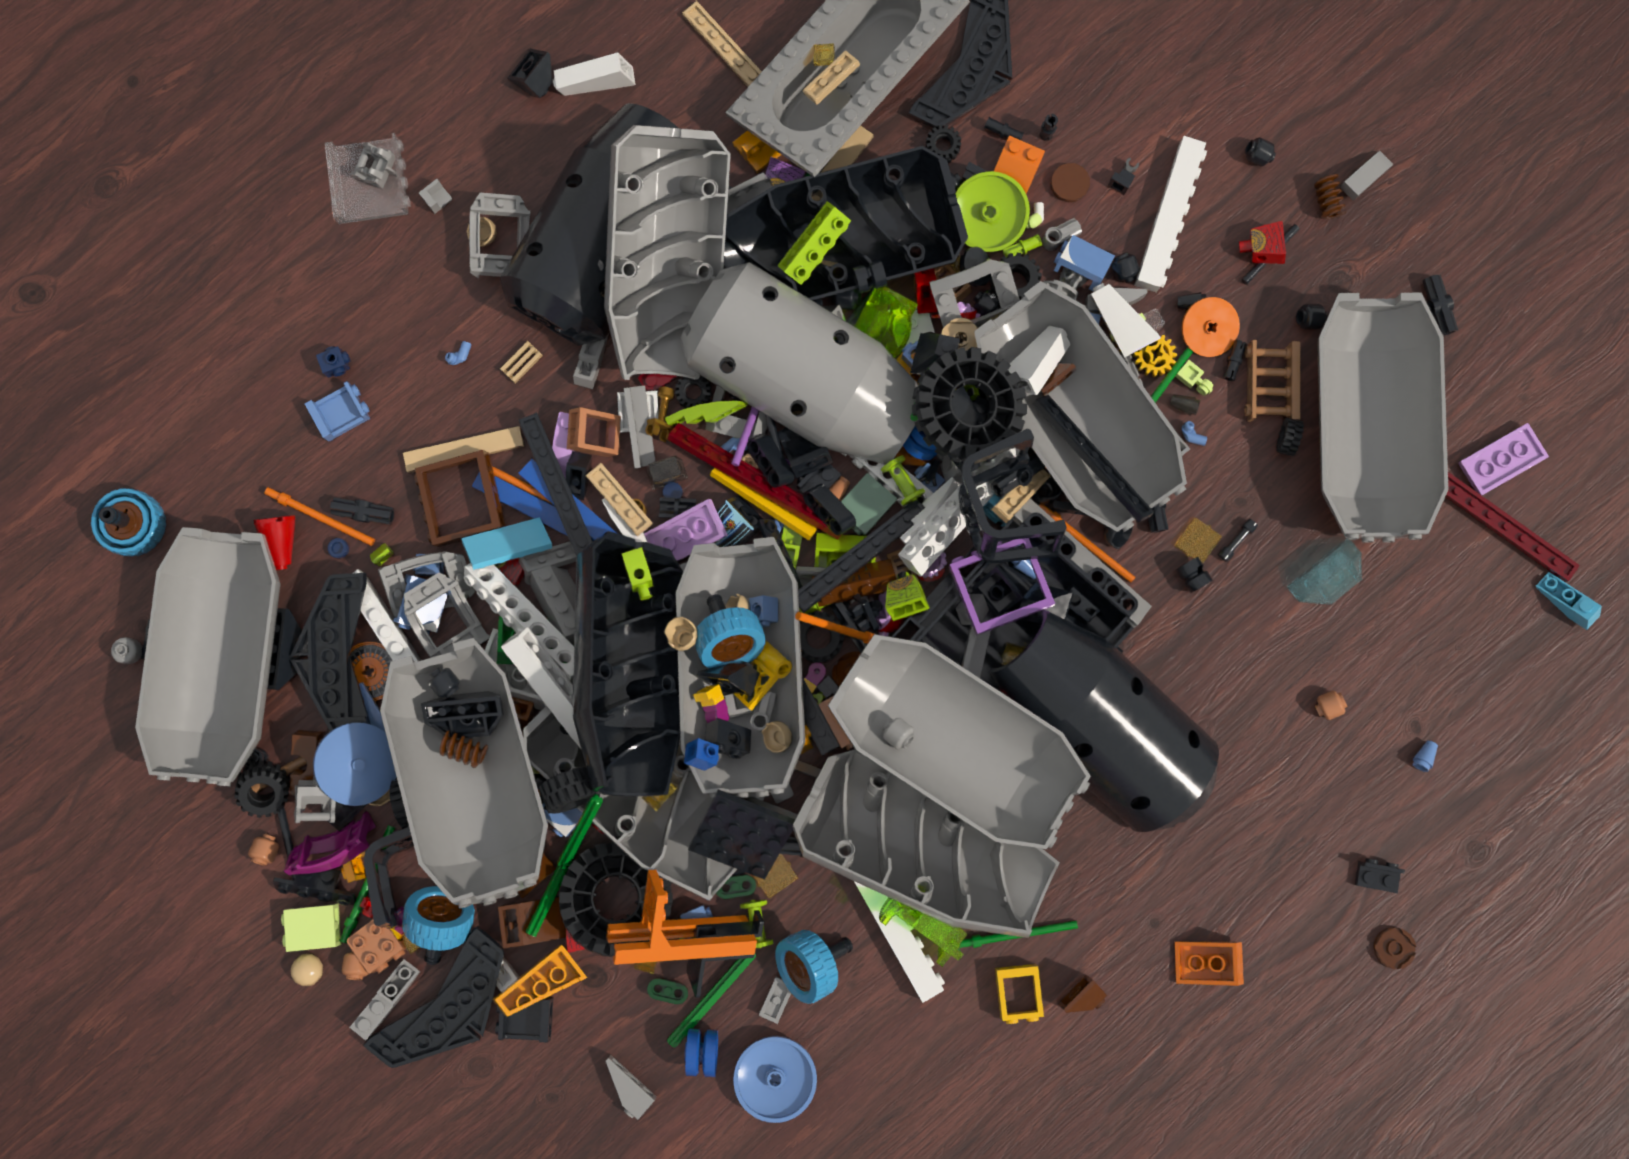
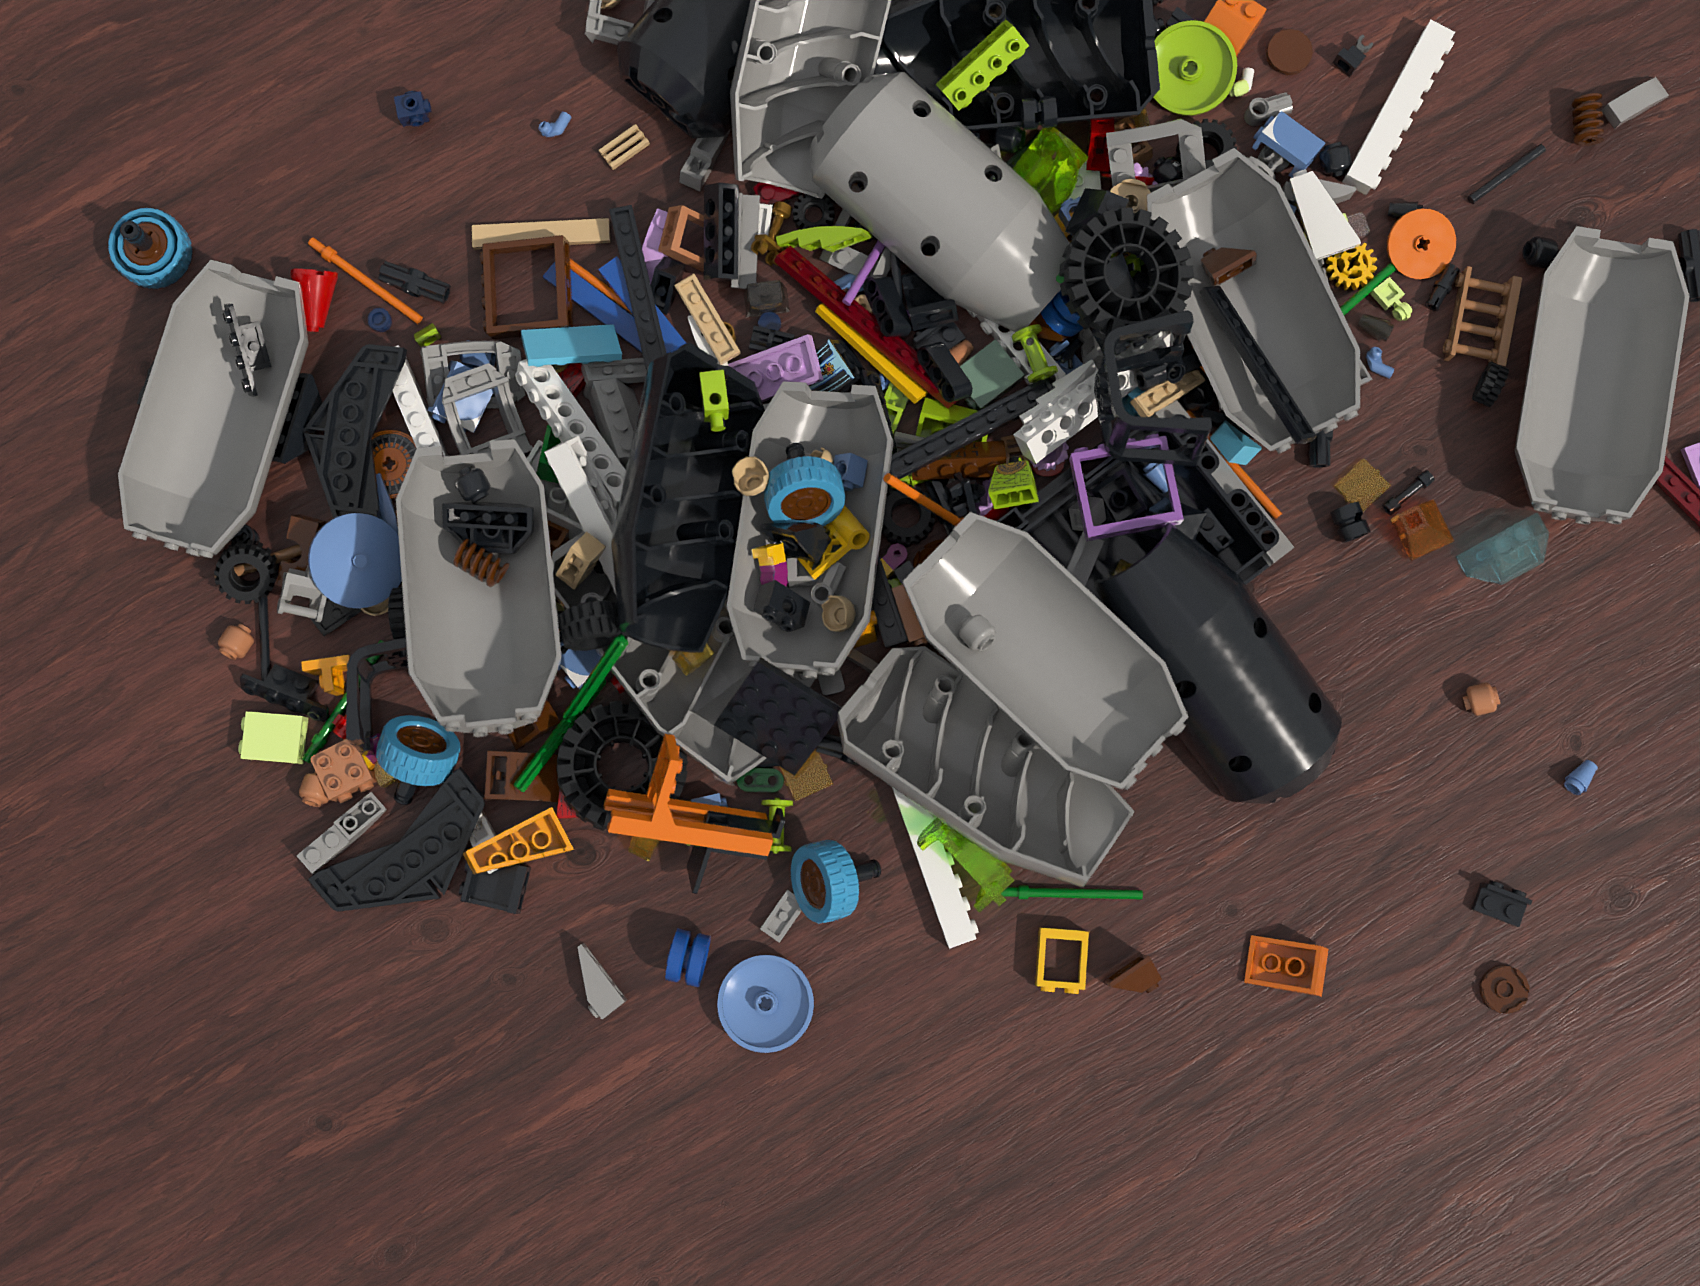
camera: 15 degrees right, 0 degrees up
(126, 650) = (122, 391): light grey head -> none
(230, 593) = (249, 346): none -> bracket
(306, 970) = (259, 785): tan hair -> none
(338, 411) = (408, 166): medium blue panel -> none
(350, 842) = (315, 653): magenta wedge -> none
(548, 733) = (580, 560): none -> tan brick
(617, 423) = (721, 231): none -> black brick
(668, 989) = (662, 883): dark green plate -> none
(701, 754) = (749, 615): blue brick -> none
(708, 1001) = (708, 901): green axle -> none
(971, 258) = (1158, 115): black tile -> none
(1023, 246) = (1223, 115): lime axle -> none
(1040, 359) = (1217, 240): white slope -> none
(1084, 526) = (1234, 444): none -> medium azure slope
(1115, 538) = (1270, 462): black hair -> none
(1255, 570) = (1422, 529): none -> clear orange slope
(1260, 151) = (1516, 54): black head -> none
(1266, 244) = (1503, 160): red torso -> none

